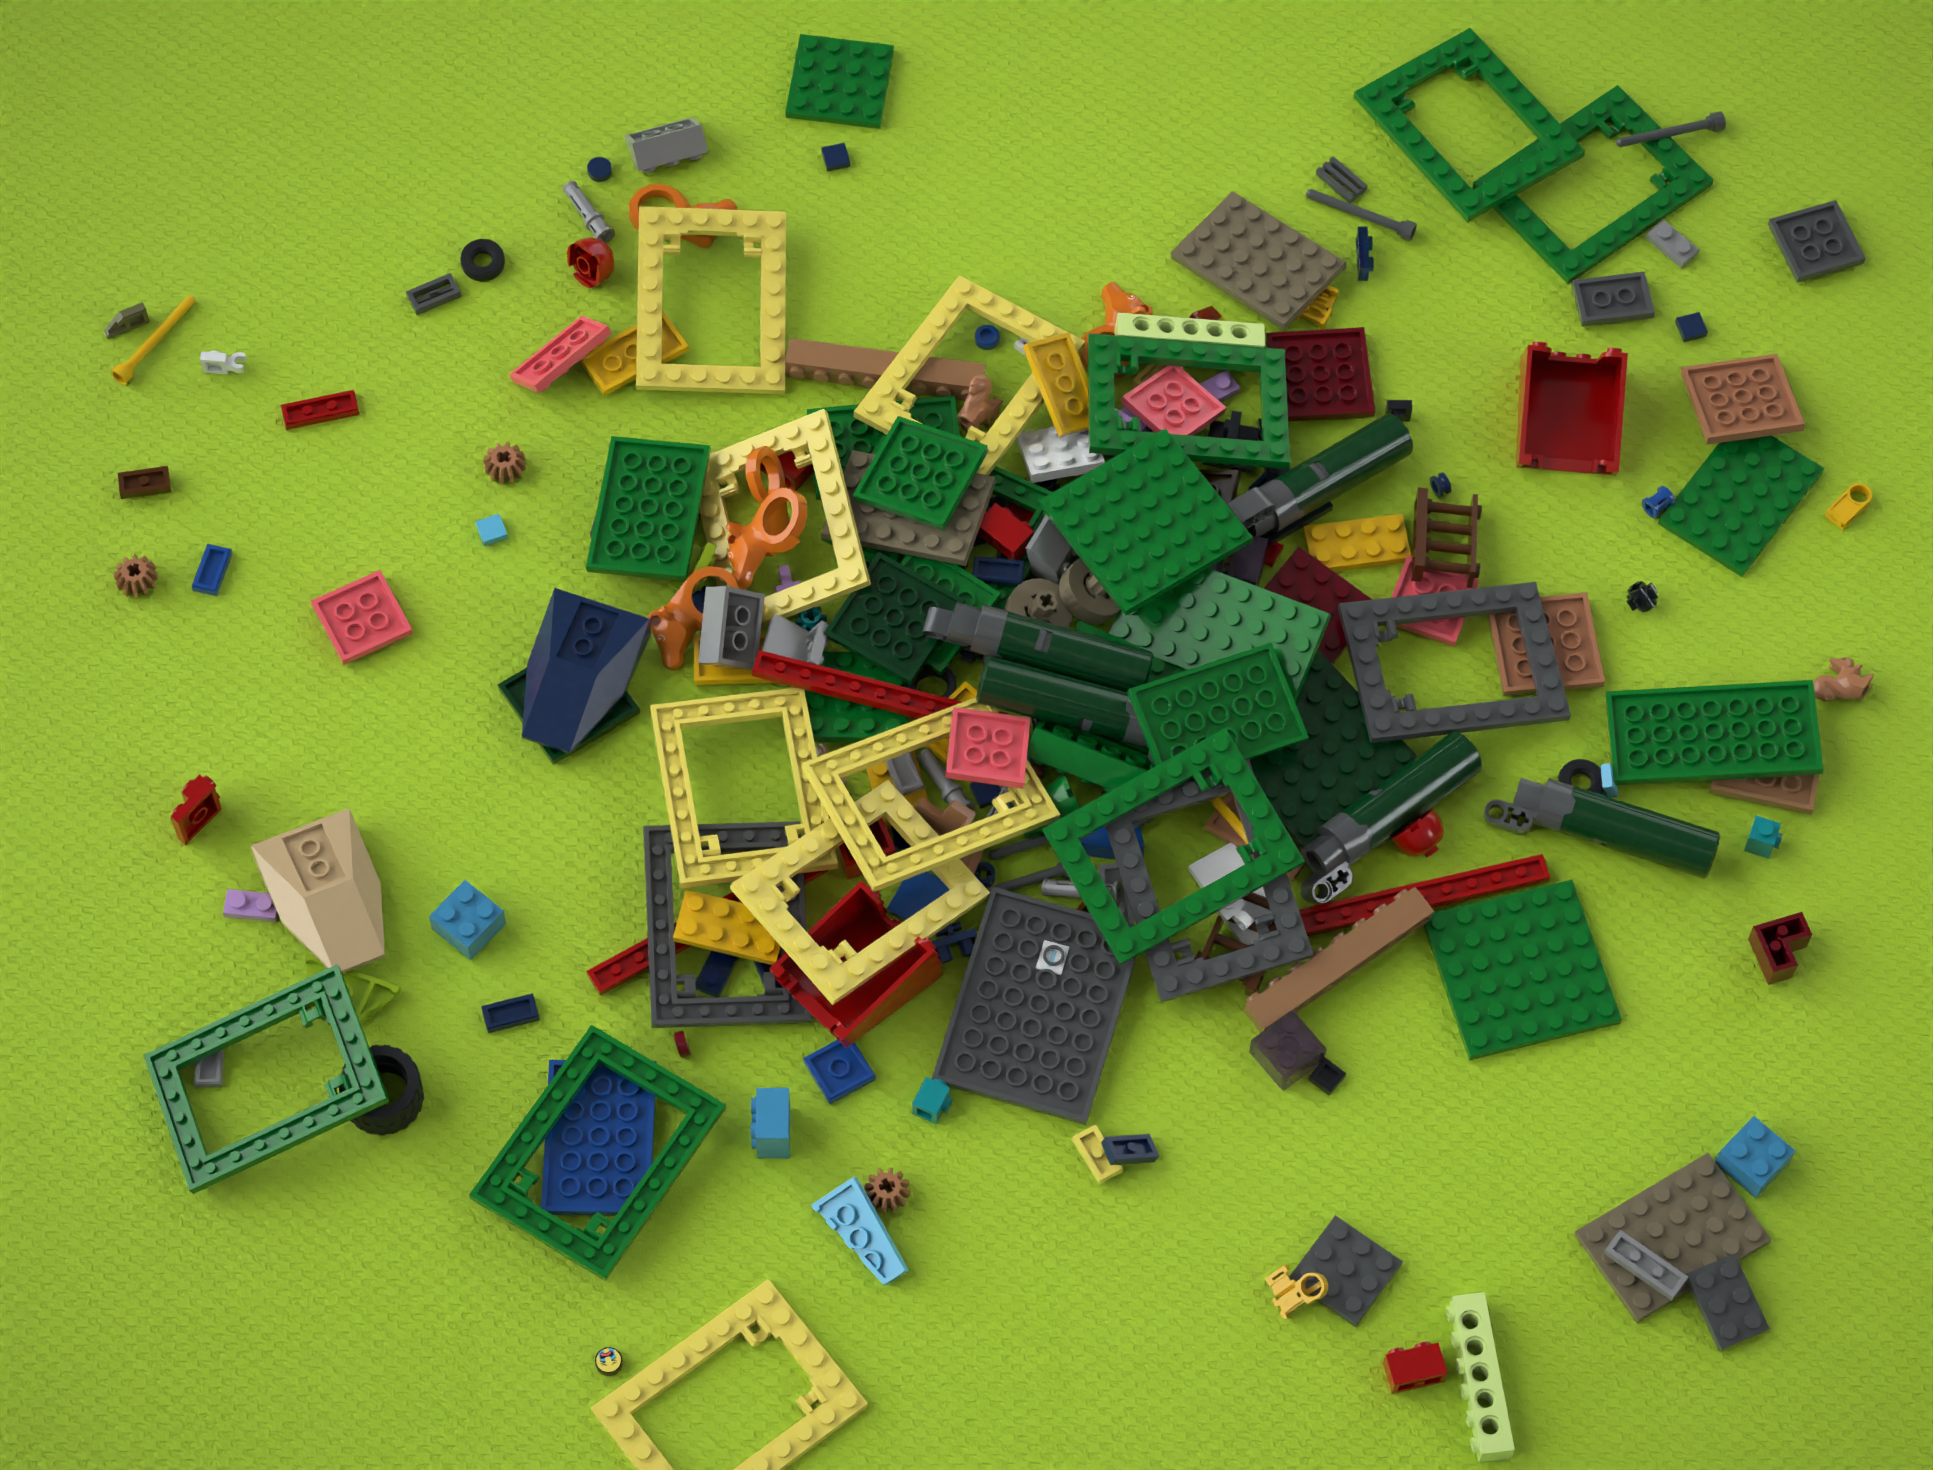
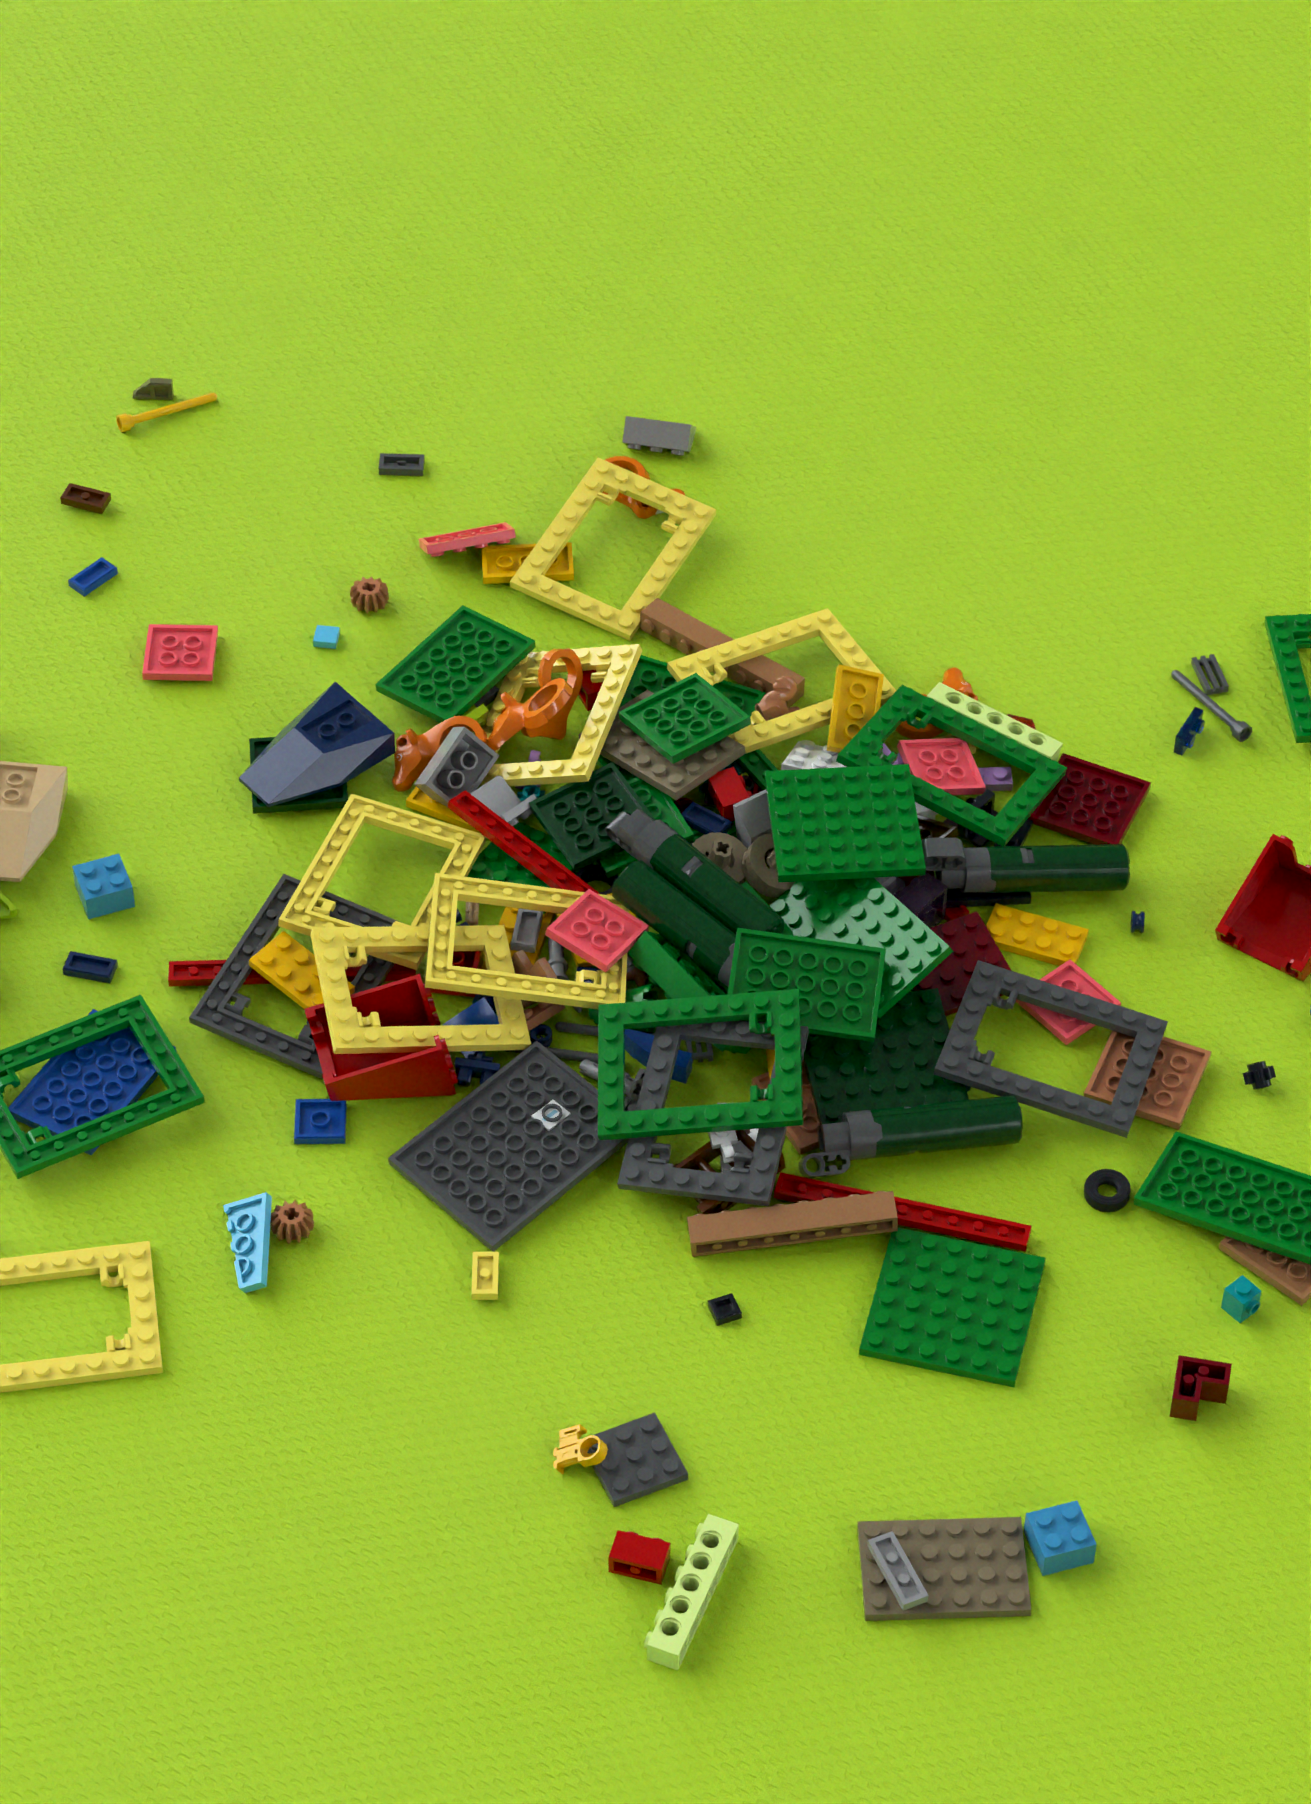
camera: 30 degrees right, 15 degrees down
(135, 575) = (31, 555): nougat gear -> none
(219, 363) = (200, 443): white plate -> none
(320, 409) = (256, 505): red tile -> none
(482, 273) = (456, 466): black tyre -> none
(591, 260) = (540, 486): red cylinder -> none
(593, 219) = (563, 462): light grey pin -> none
(599, 169) = (594, 432): dark blue tile -> none
(682, 1044) = (206, 1045): dark red tile -> none
(715, 973) = (273, 1009): plate -> none
(771, 1122) = (232, 1127): dark azure brick -> none
(835, 157) = (791, 496): dark blue tile -> none
(839, 81) = (833, 448): green plate -> none
(932, 1100) = (376, 1174): teal brick -> none
(987, 337) = (825, 666): blue tile -> none
(1130, 1149) = (513, 1281): dark blue plate -> none
(1258, 260) = (1093, 700): dark tan plate -> none
(1287, 1050) = (701, 1270): brick -> none
(1316, 311) = (1121, 757): yellow piece -> none
(1399, 408) = (1139, 853): black plate -> none
(1420, 835) = (931, 1164): red cylinder -> none
(1422, 544) = (1098, 940): reddish brown fence -> none
(1608, 781) = (1127, 1198): medium azure tile -> none
(1609, 823) = (1103, 1225): dark green piece -> none
(1726, 1302) = (954, 1637): dark grey plate -> none

